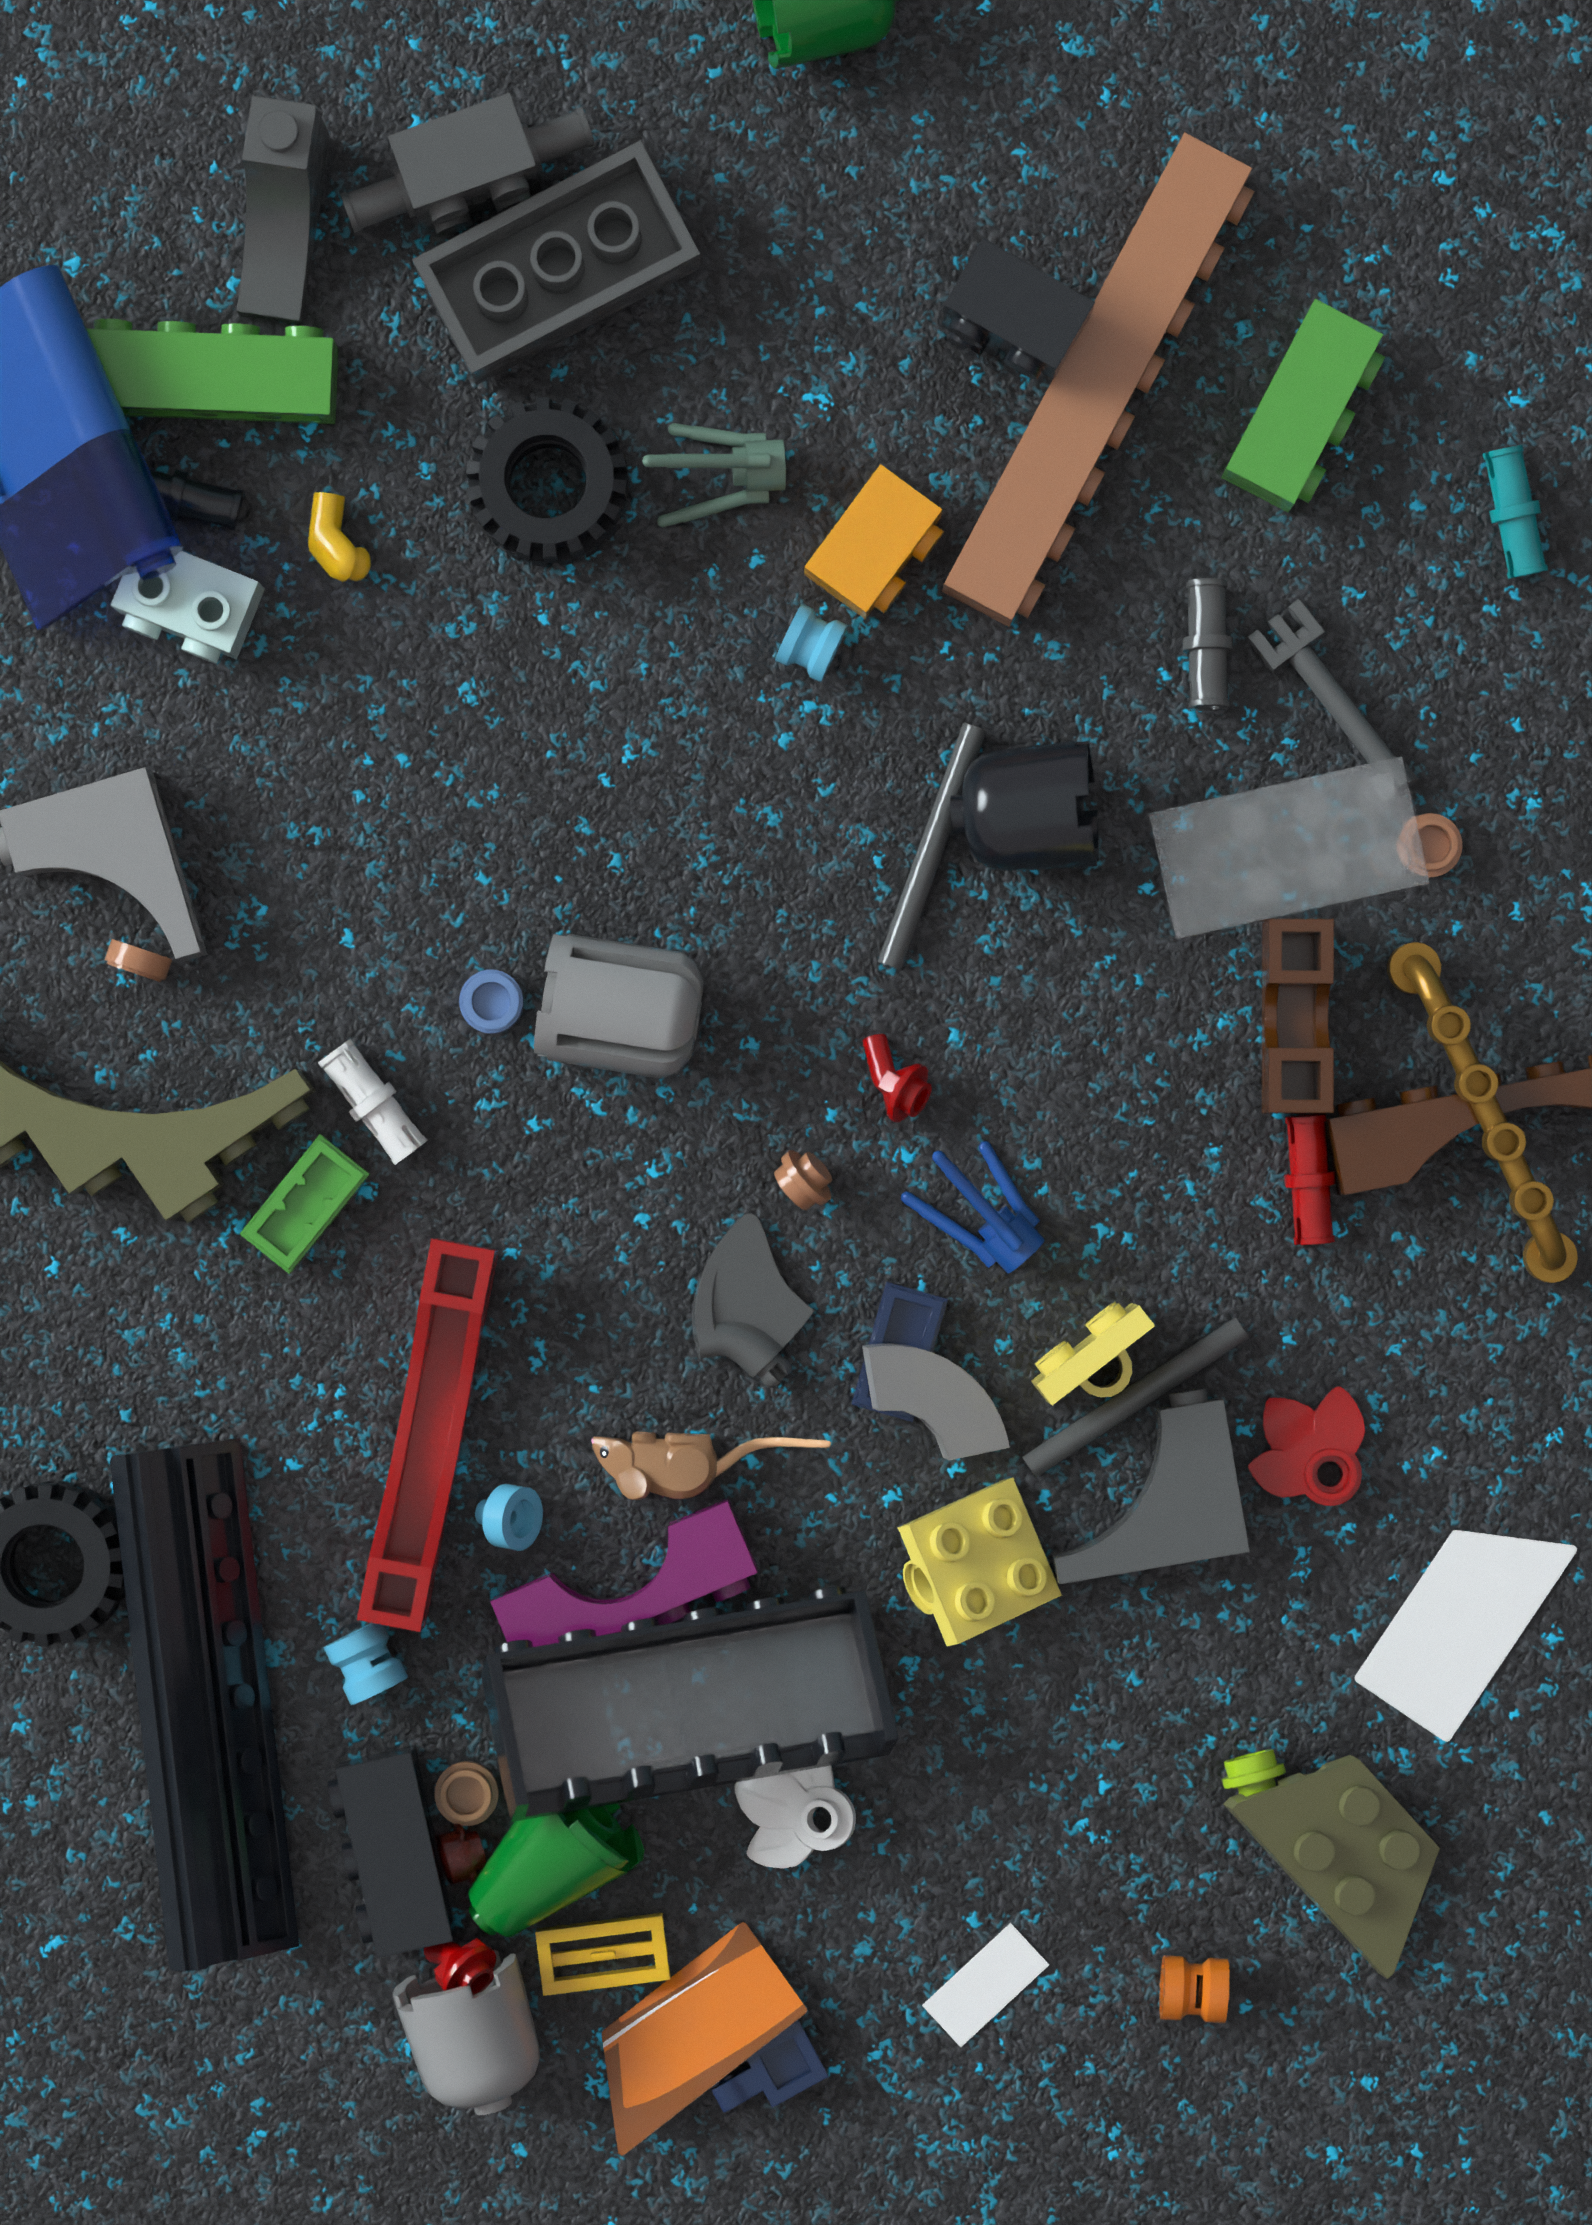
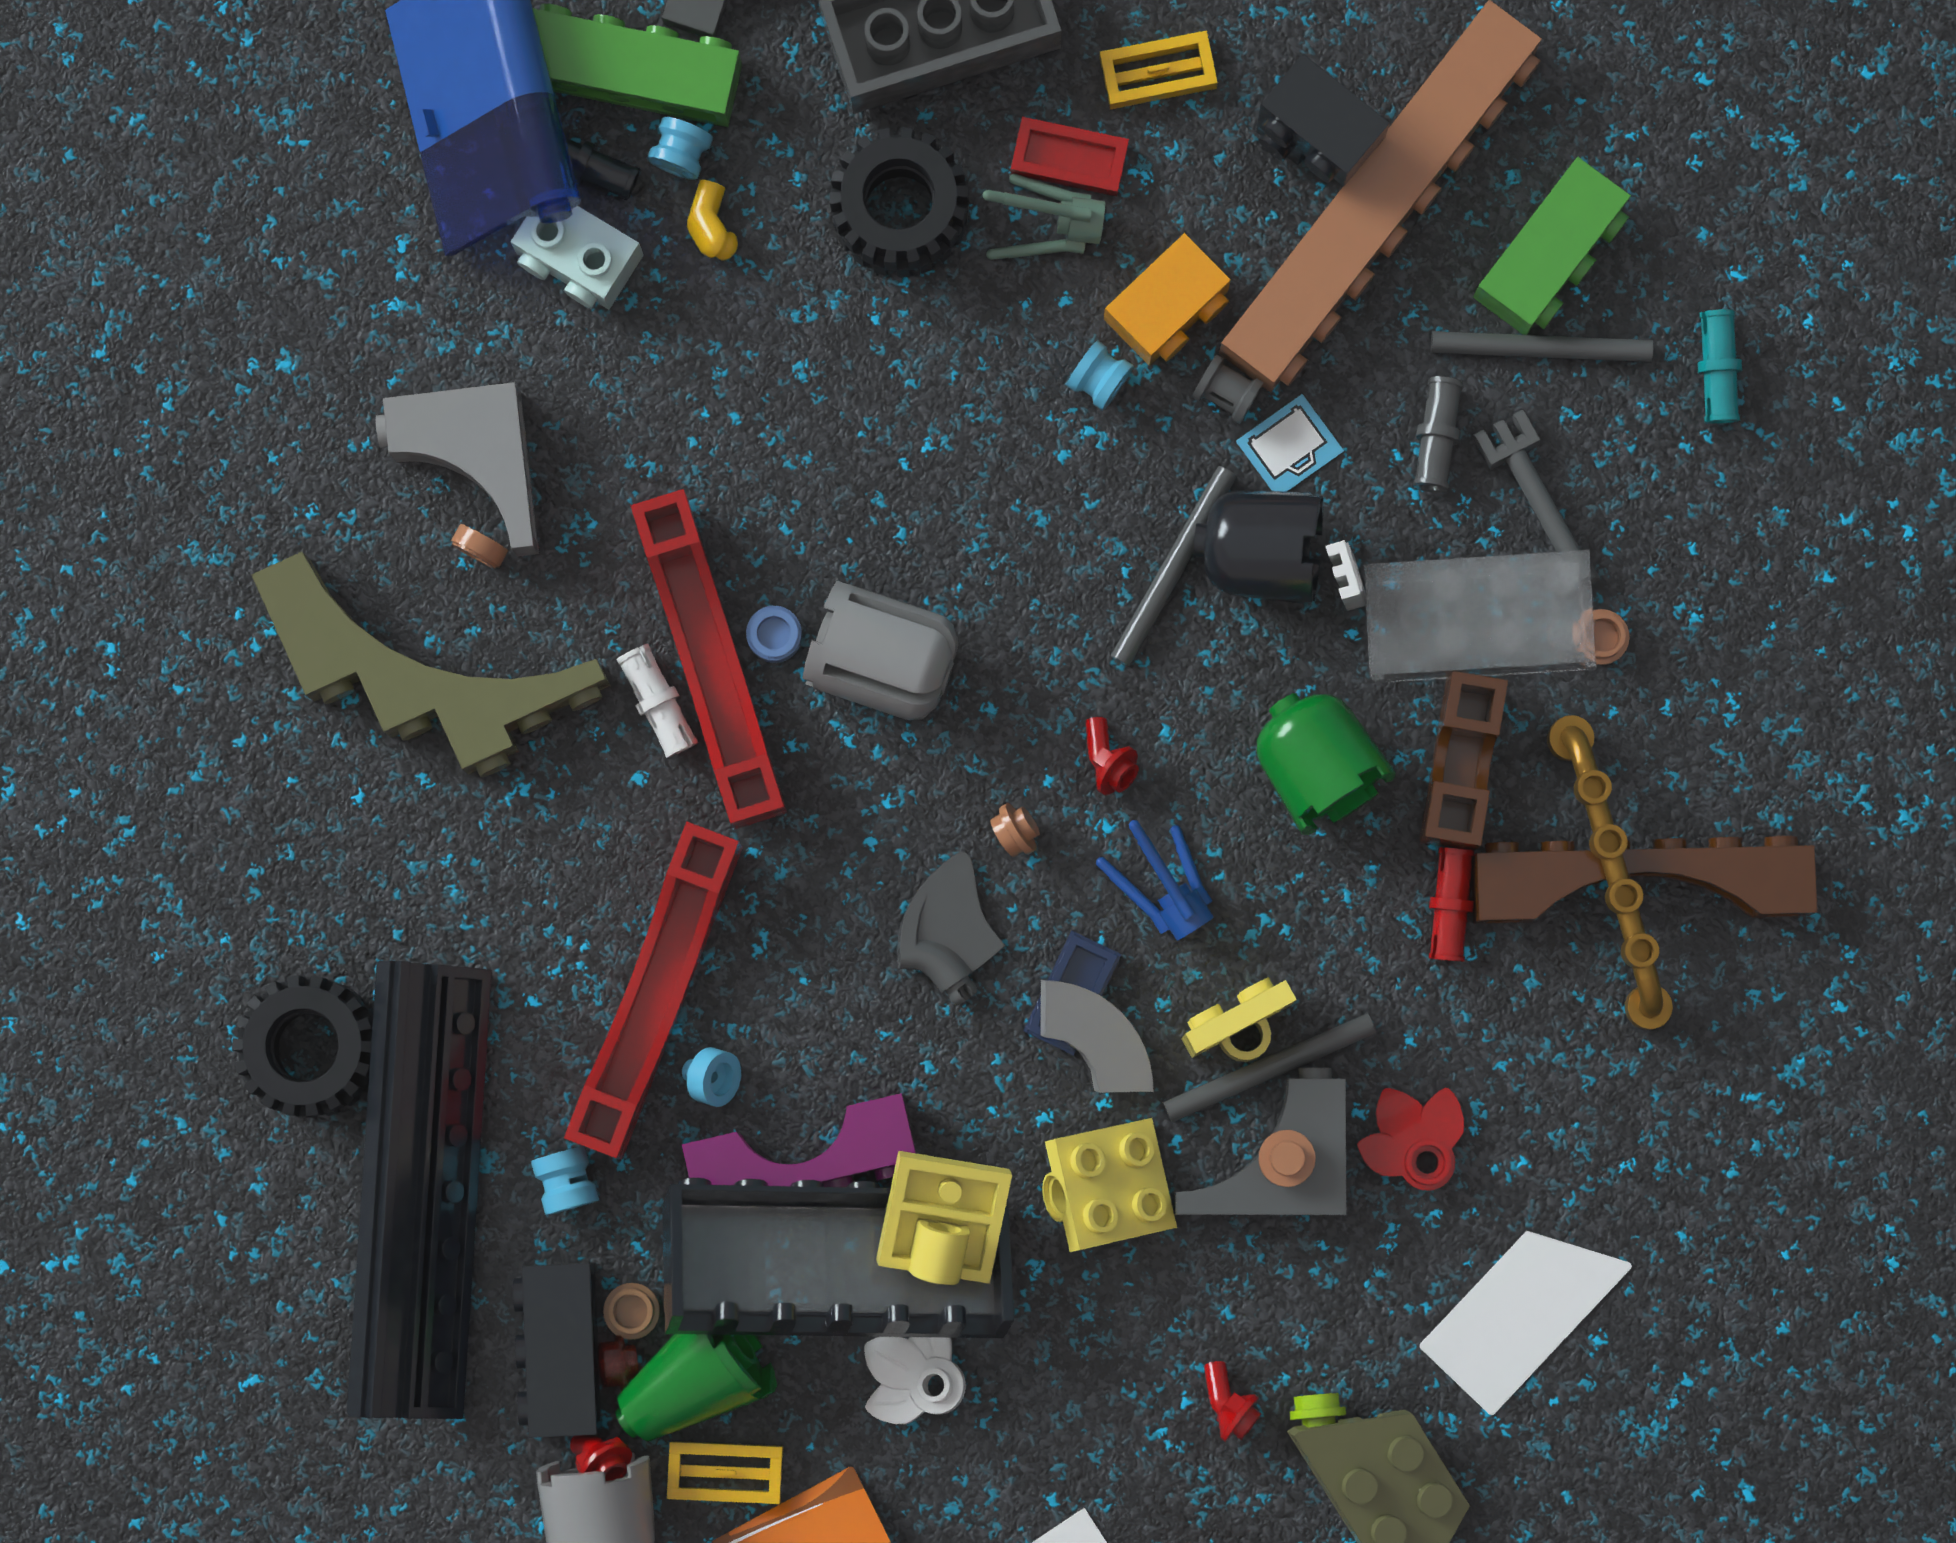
camera: 15 degrees right, 5 degrees down
(284, 460) = (680, 148): none -> medium azure wheel
(305, 1204) = (584, 778): bright green plate -> none
(423, 1045) = (709, 659): none -> red arch
(677, 1465) = (862, 1056): medium nougat animal -> none
(733, 392) = (1069, 156): none -> red tile
(800, 1638) = (943, 1218): none -> light yellow plate
(828, 297) = (1162, 90): none -> yellow tile
(960, 633) = (1227, 389): none -> dark grey bush
(1040, 684) = (1289, 445): none -> sticker
(1134, 826) = (1347, 575): none -> white tile
(1134, 1041) = (1319, 759): none -> green cylinder
(1160, 1790) = (1235, 1412): none -> red plate
(1172, 1502) = (1286, 1158): none -> nougat plate
(1308, 521) = (1541, 346): none -> dark grey bar

